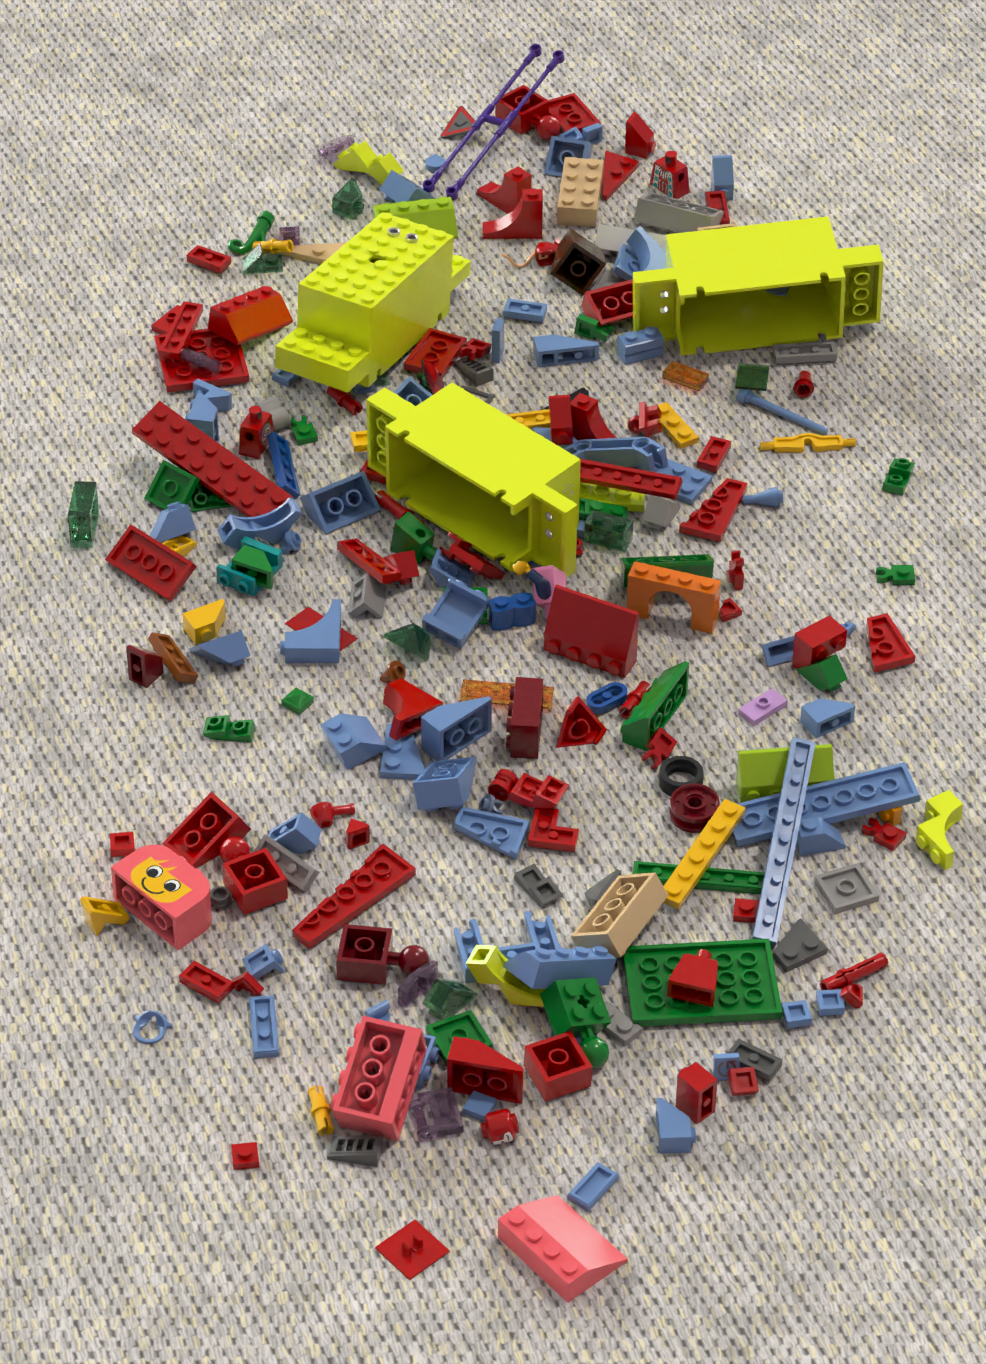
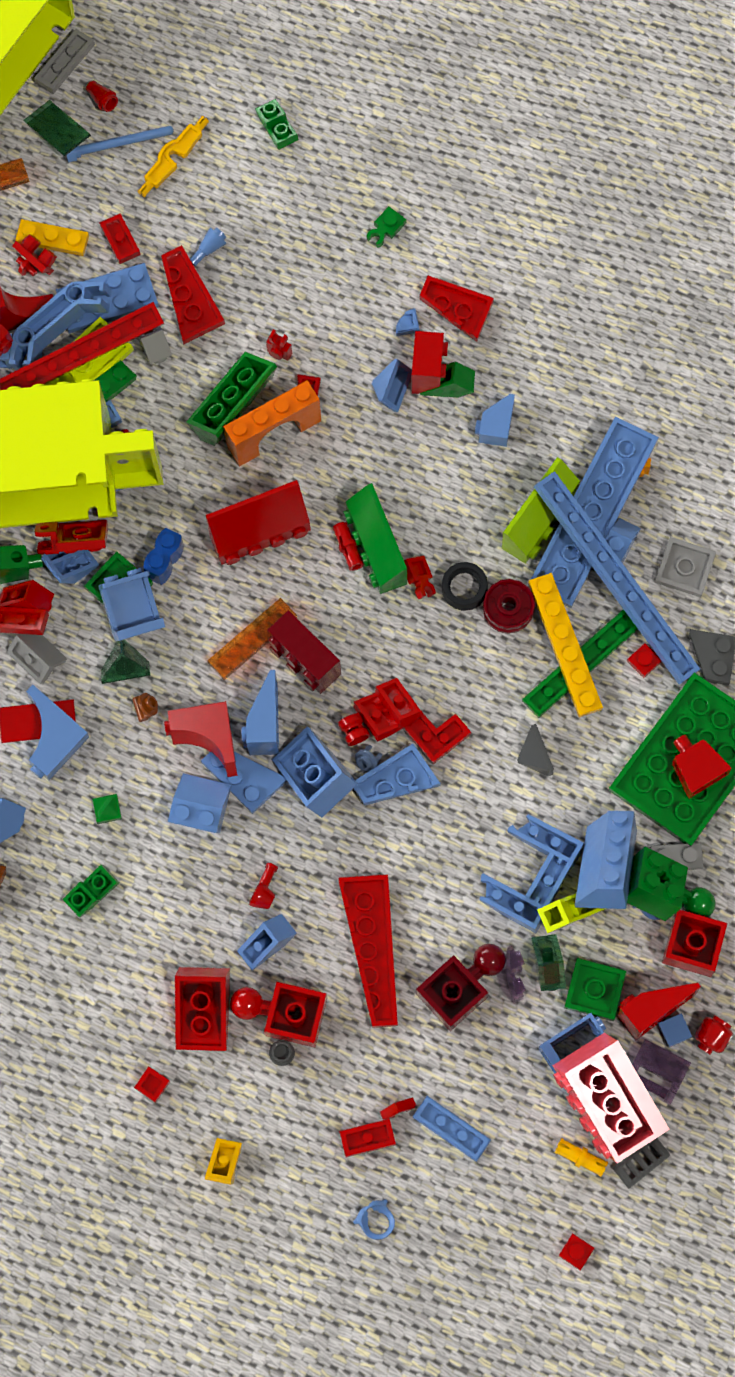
camera: 45 degrees left, 30 degrees up
(164, 893) = (251, 1099): coral brick -> none
(263, 961) = (386, 1076): medium blue bracket -> none
(292, 866) = (291, 970): light grey plate -> none
(357, 834) = (308, 888): red slope -> none
(379, 1011) = (517, 1032): medium blue plate -> none
(538, 887) = (484, 794): dark grey slope -> none
(543, 580) = (167, 508): torso -> none
(580, 726) = (343, 615): red slope -> none
(606, 697) = (326, 567): blue plate -> none
(608, 531) = (138, 400): clear green brick -> none
(621, 913) = (584, 766): tan brick -> none
(762, 707) = (440, 457): lavender plate -> none
(885, 835) = (657, 487): red plate -> none
(940, 815) = (693, 458): neon yellow arch -> none

